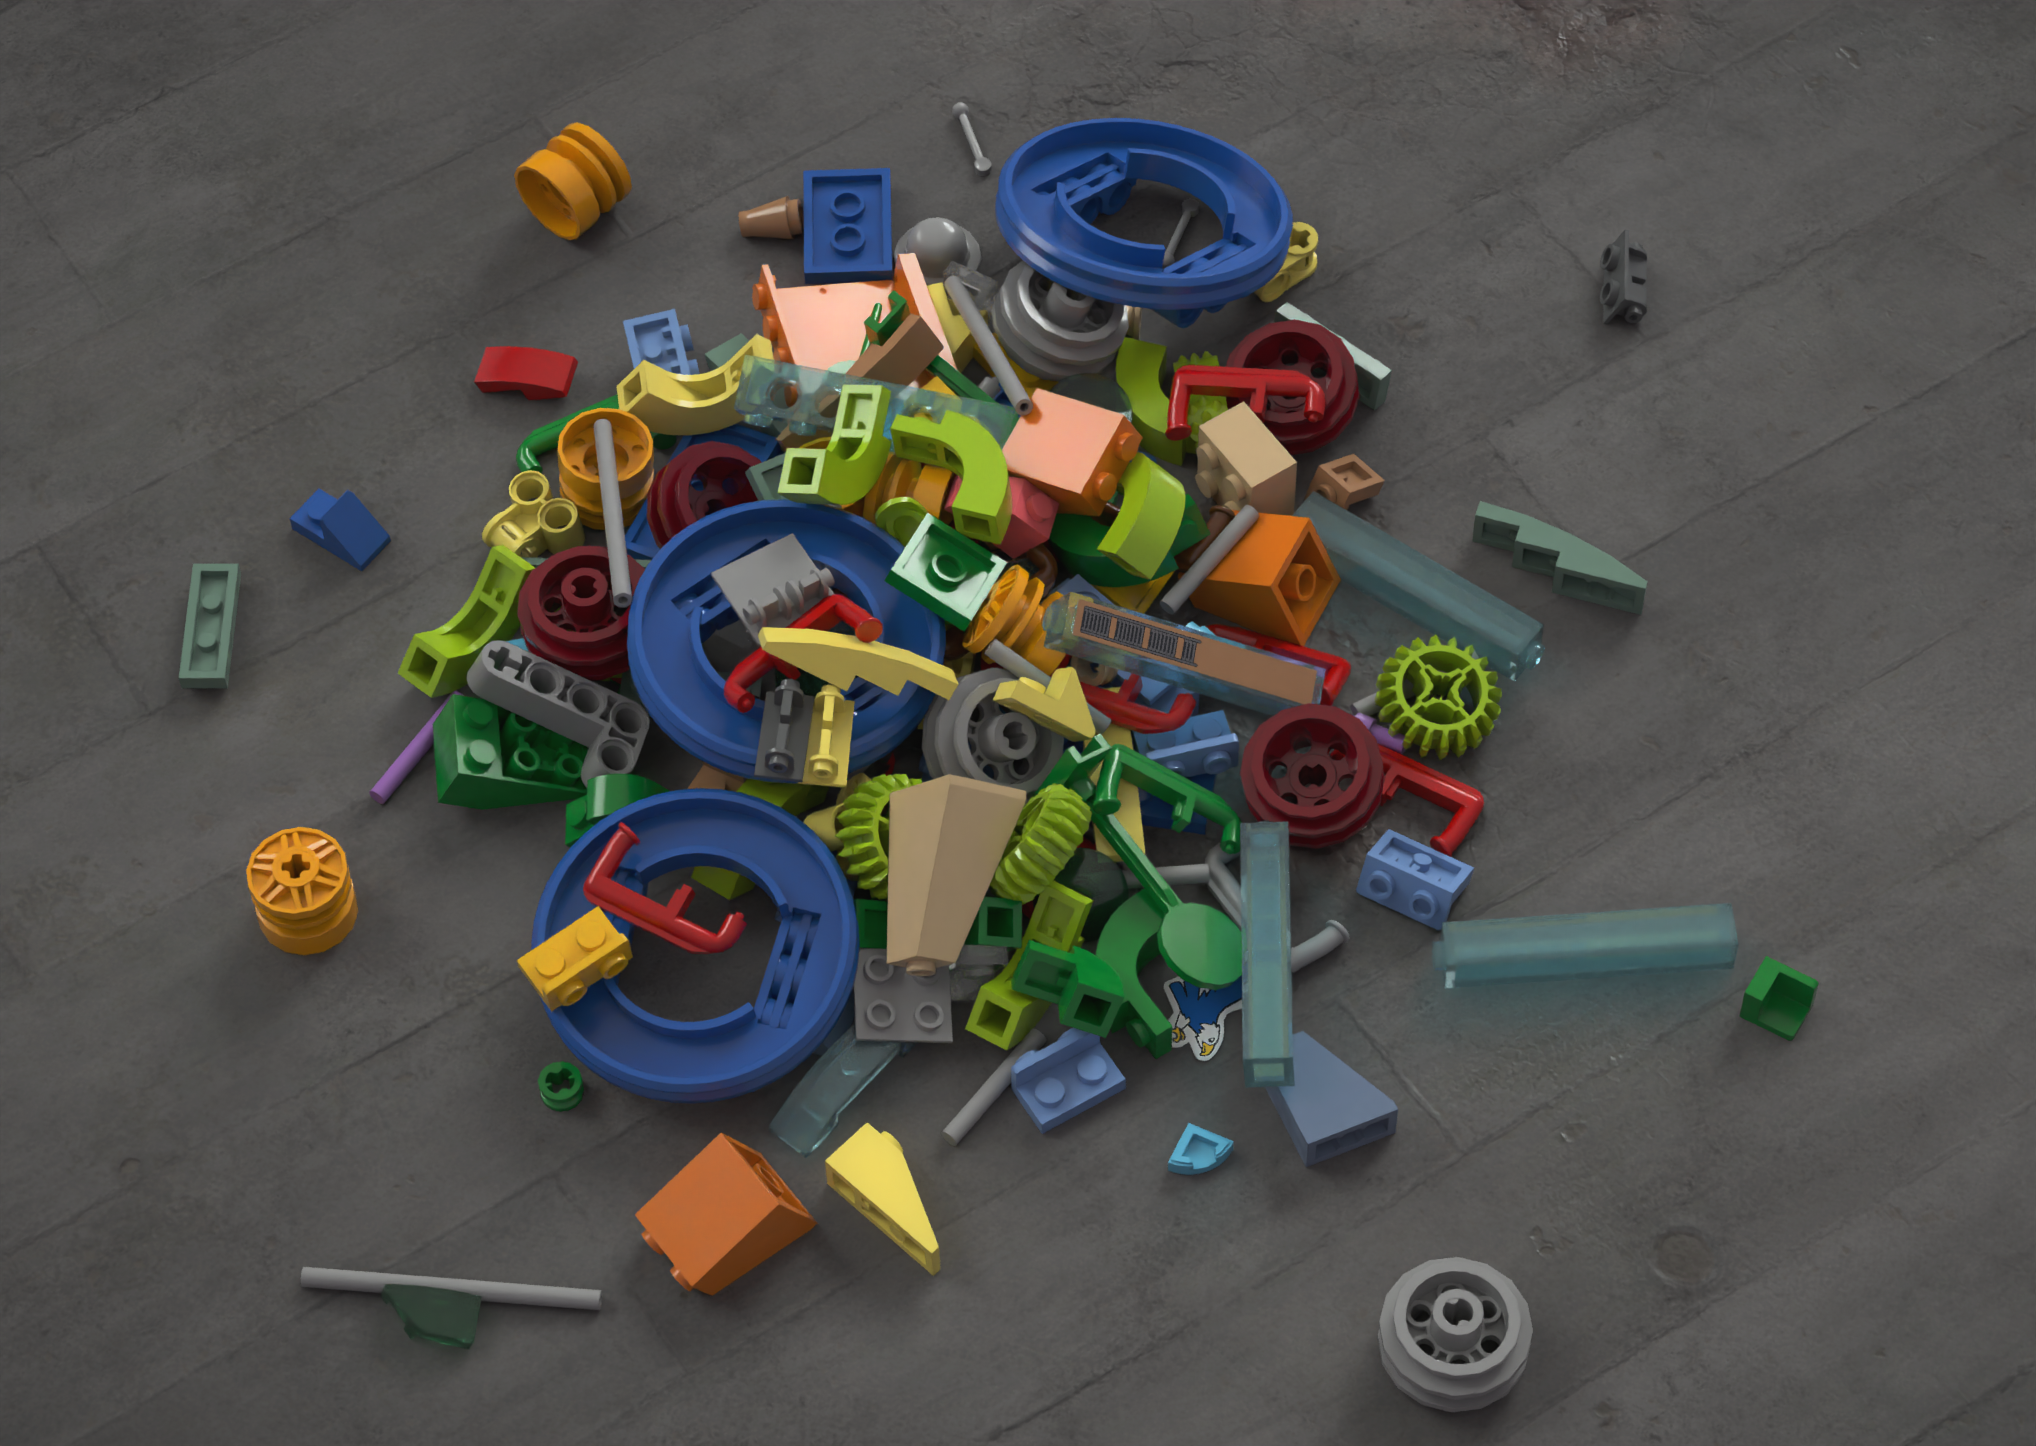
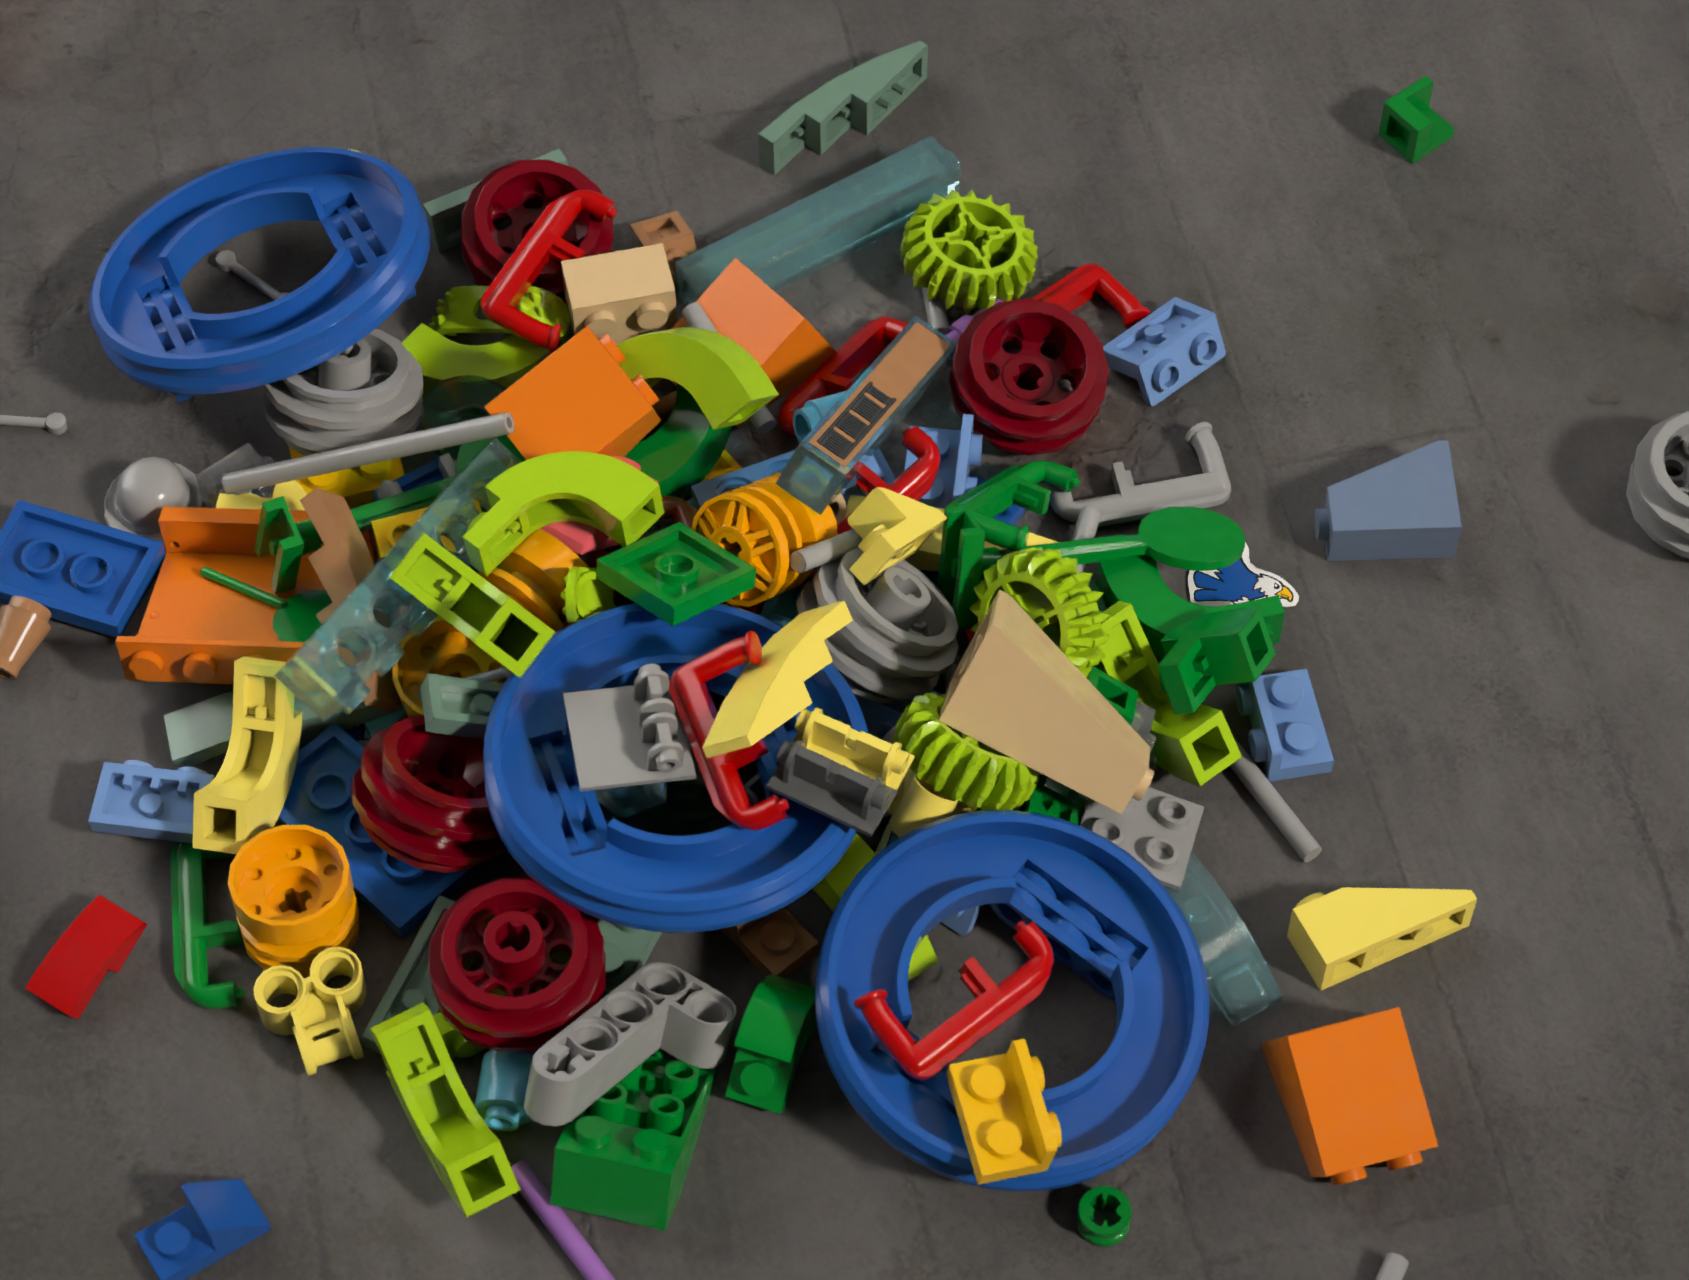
camera: 70 degrees left, 0 degrees up
(612, 513) = (410, 883): light grey piece -> none
(1199, 1151) = (1407, 638): medium azure tile -> none
(1267, 955) = (1233, 480): clear light blue brick -> none
(1586, 945) = (1302, 241): clear light blue brick -> none

